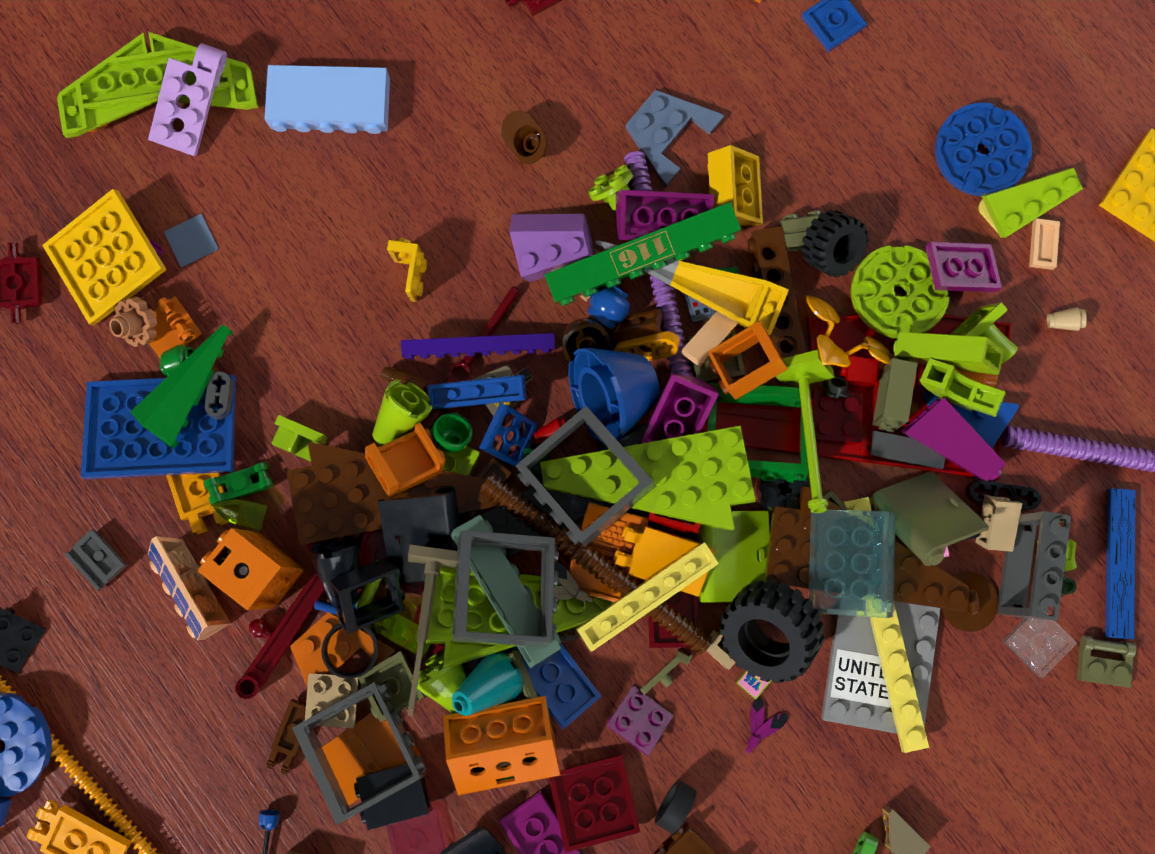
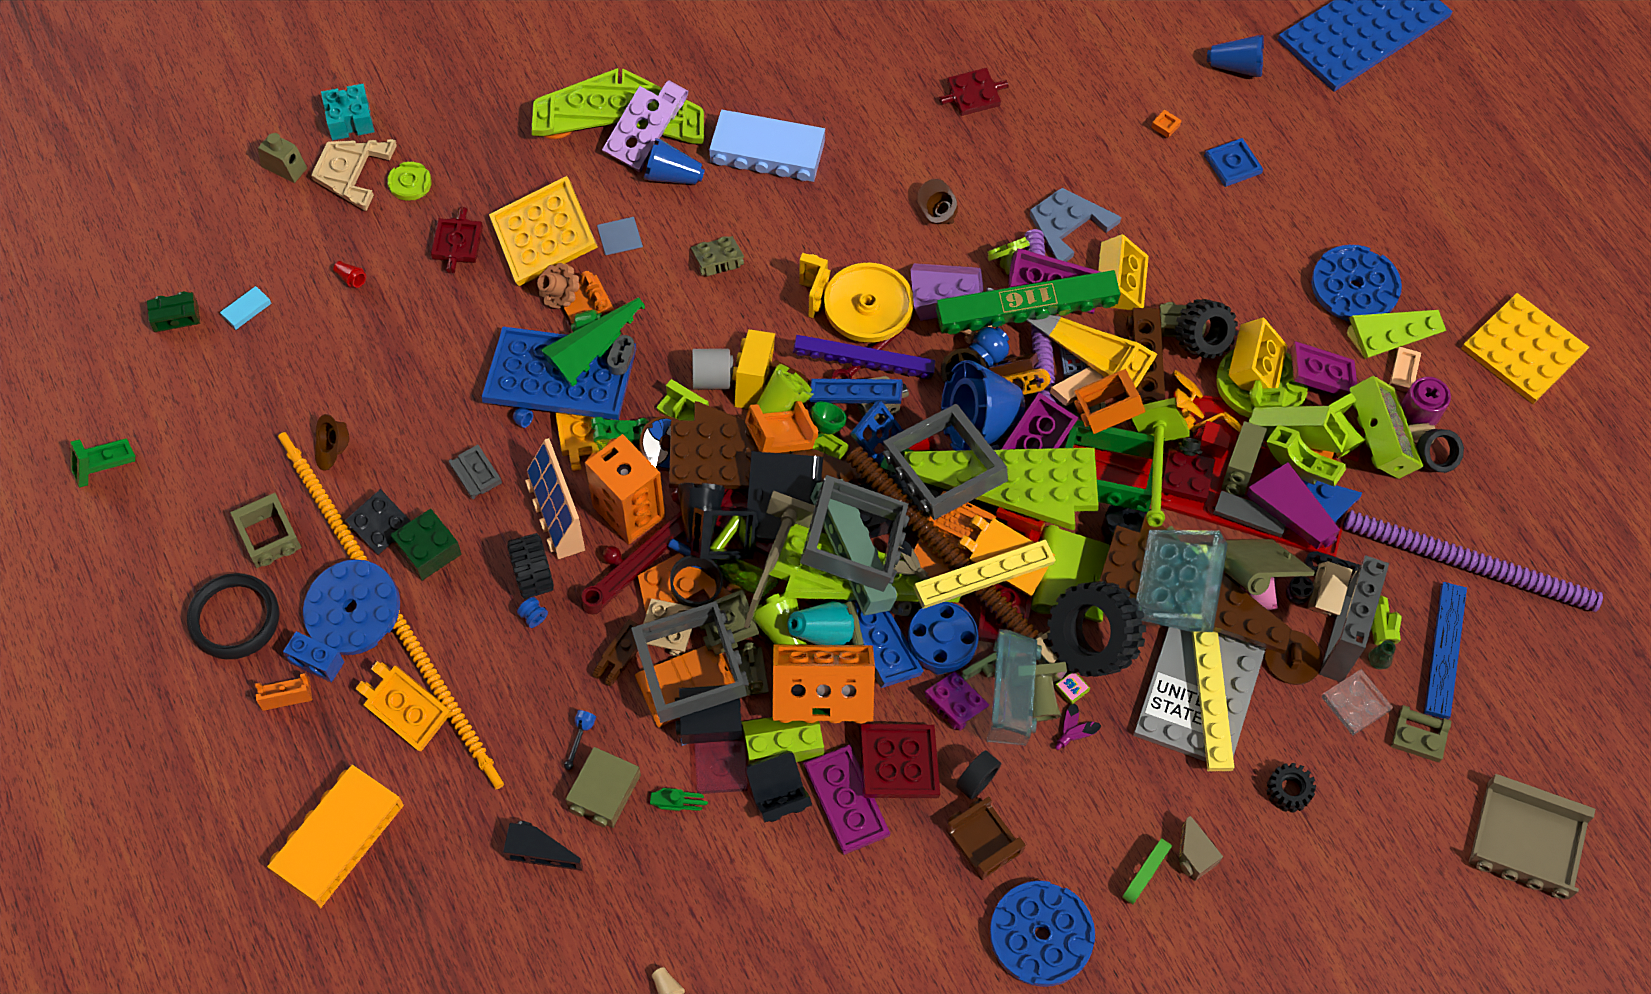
camera: 10 degrees right, 20 degrees down
(62, 657) = (426, 544): none -> dark green brick
(132, 485) = (523, 417): none -> blue hinge
(173, 669) = (530, 565): none -> black tyre
(190, 711) = (532, 612): none -> blue wheel
(227, 146) = (672, 165): none -> blue cone
(275, 488) = (656, 442): none -> shield
(299, 245) = (718, 252): none -> olive hinge
(319, 392) = (712, 368): none -> light grey piece
(362, 379) = (752, 367): none -> yellow wedge
(428, 729) = (754, 667): none -> olive hinge
(464, 812) = (769, 737): none -> lime slope
(468, 256) = (868, 302): none -> yellow dish
(617, 658) = (943, 637): none -> blue piece
(697, 712) = (1014, 688): none -> clear light blue windscreen
(720, 691) = (1045, 702): none -> olive plant
(893, 269) = (1257, 356): none -> yellow slope
(912, 318) = (1267, 396): none -> lime bracket
(1000, 754) = (1296, 774): none -> black tyre
(1036, 325) = (1385, 428): none -> lime brick
(1073, 284) = (1426, 401): none -> magenta piece
(1106, 345) = (1455, 455): none -> black tyre

